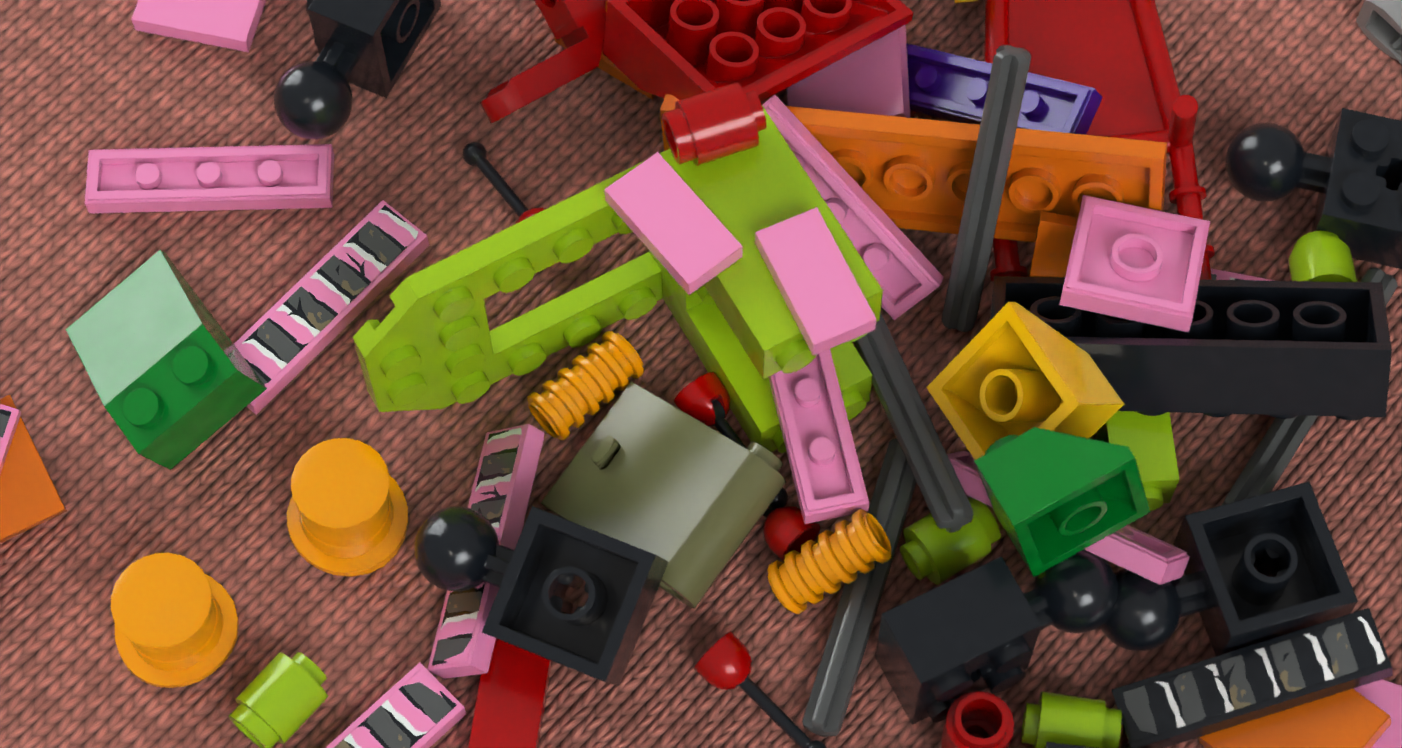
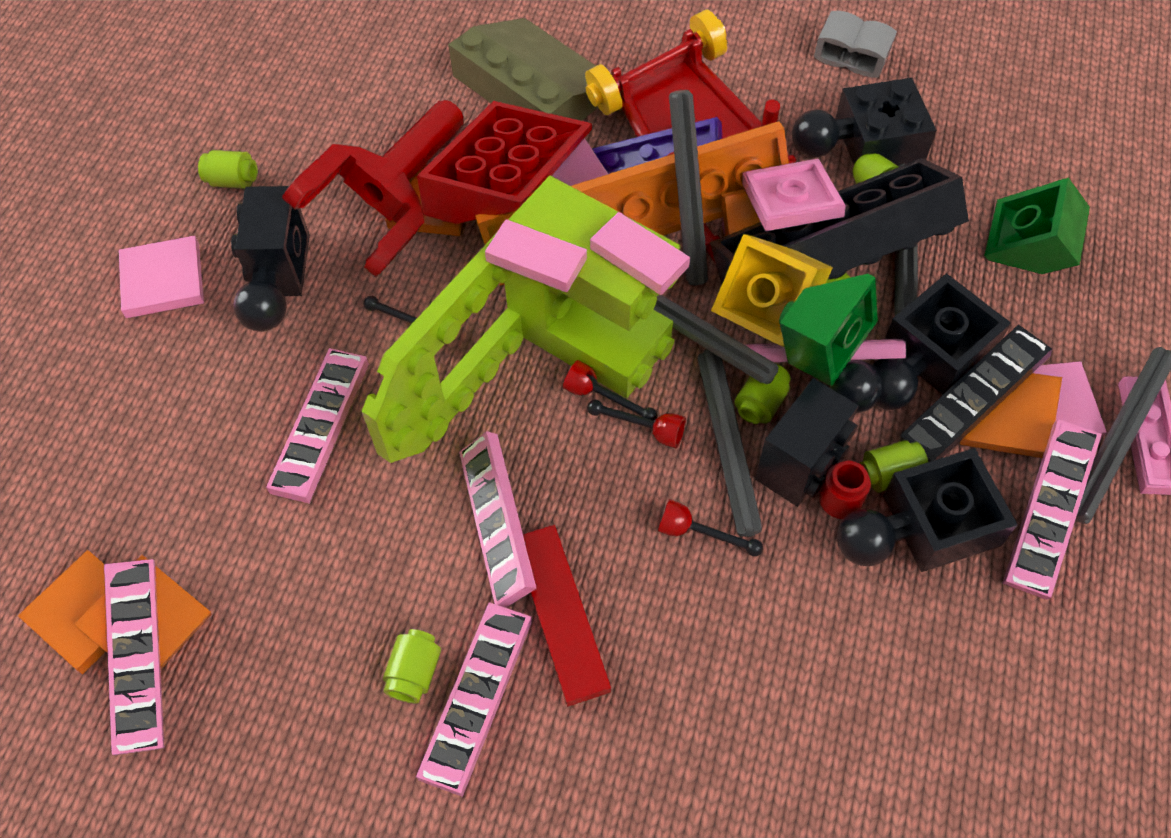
camera: 25 degrees left, 5 degrees down
(162, 363) = (235, 495): green slope -> none
(172, 621) = (315, 648): light orange piece -> none
(210, 178) = (212, 381): bright pink tile -> none
(345, 508) = (395, 530): light orange piece -> none
(461, 550) = (485, 518): black brick -> none
(585, 385) = (506, 399): light orange piece -> none
(668, 489) = (587, 437): olive door -> none
(714, 124) = (531, 190): red brick -> none
(819, 441) = (657, 361): bright pink tile -> none
(828, 562) = (705, 433): light orange piece -> none

